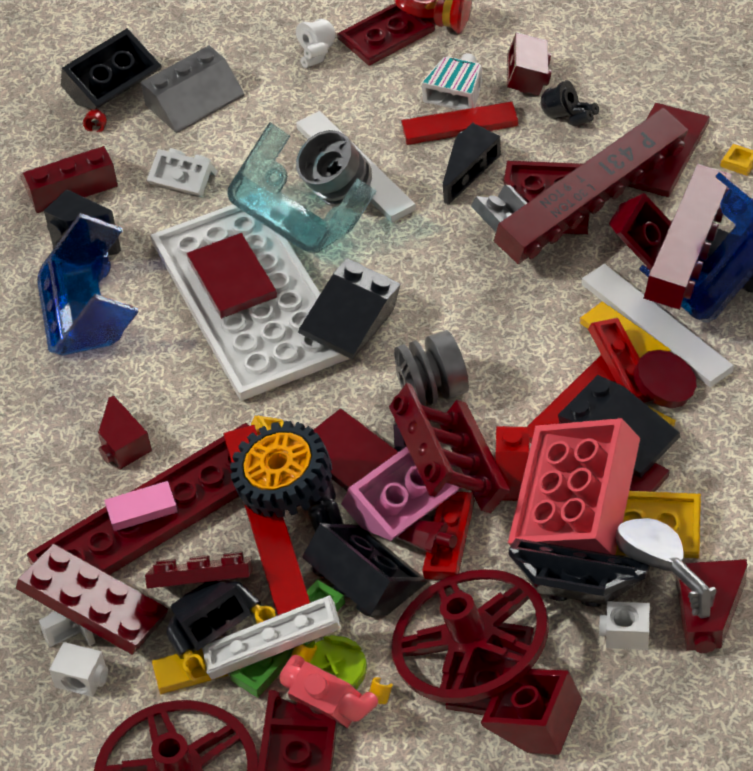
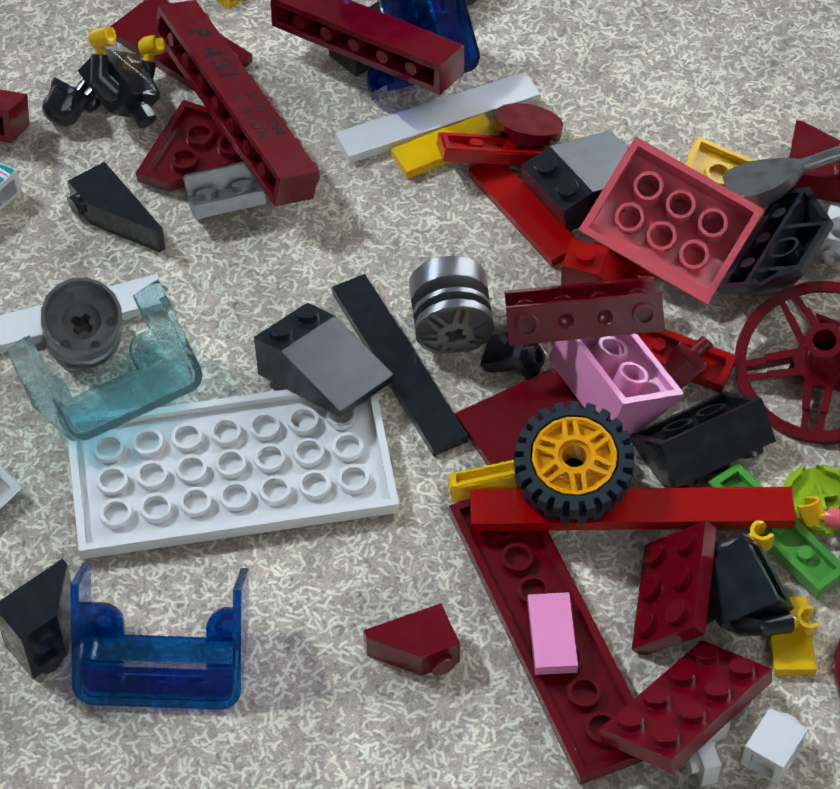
camera: 80 degrees left, 5 degrees up
(231, 275) = (203, 471): dark red tile -> none
(271, 637) = (796, 527): white tile -> none
(376, 367) = (411, 381): none -> black tile
(452, 123) = (36, 206): red tile -> none
(585, 119) = (122, 78): none -> black torso
(641, 227) = (306, 87): dark red slope -> none

